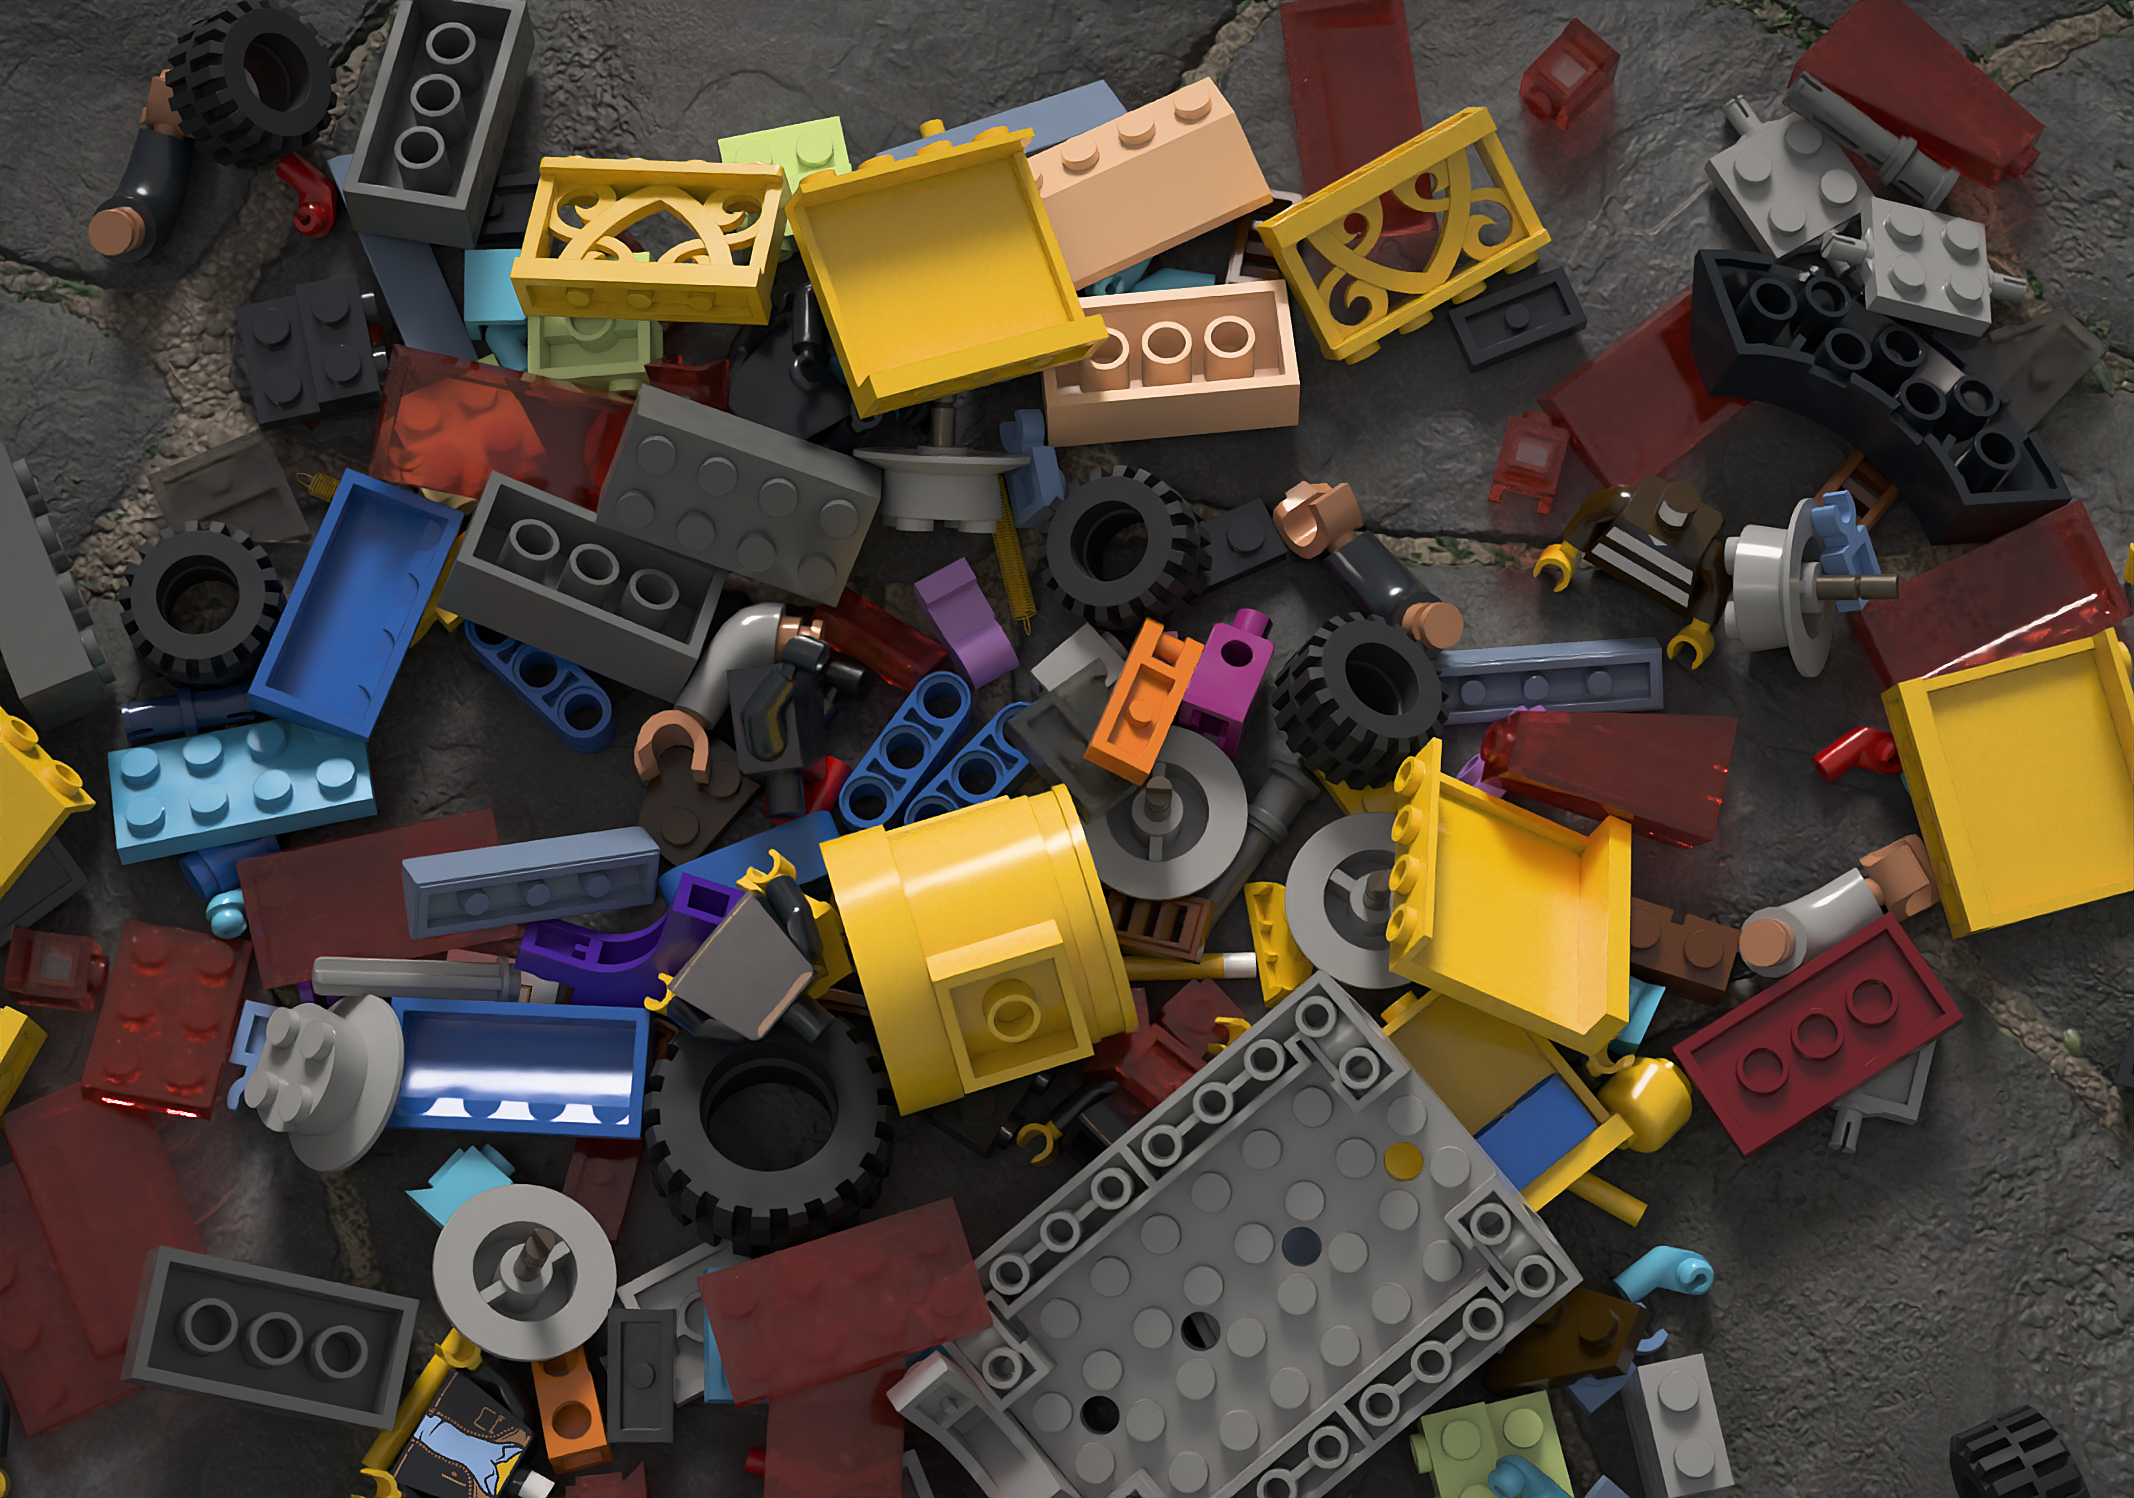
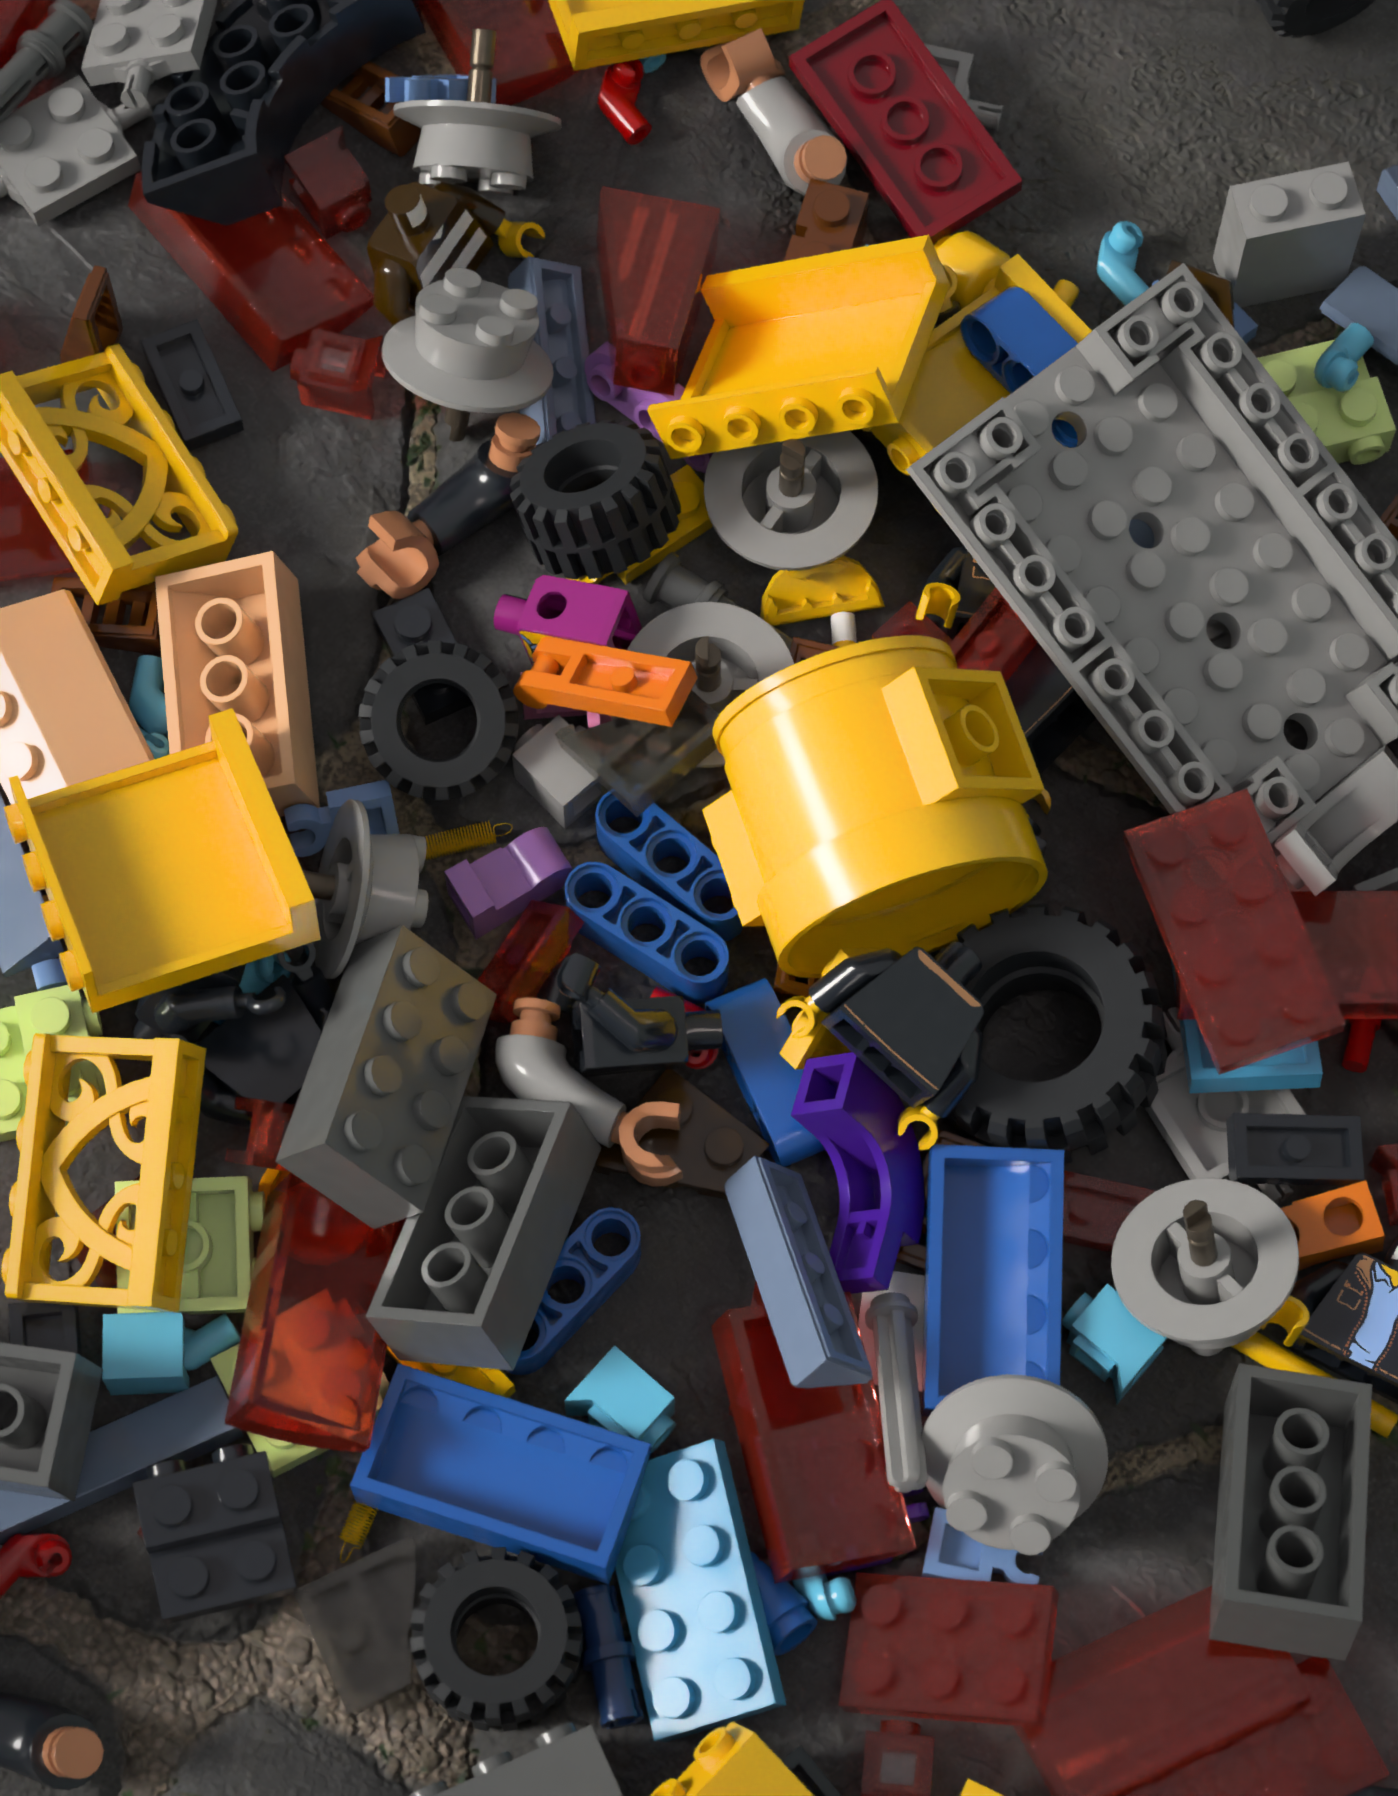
camera: 90 degrees left, 5 degrees down
(426, 729) = (624, 1400): none -> medium azure window
(1524, 575) = (470, 349): none -> light grey piece
(1574, 218) = (94, 320): none -> reddish brown slope
(1748, 452) = (330, 184): none -> clear red window

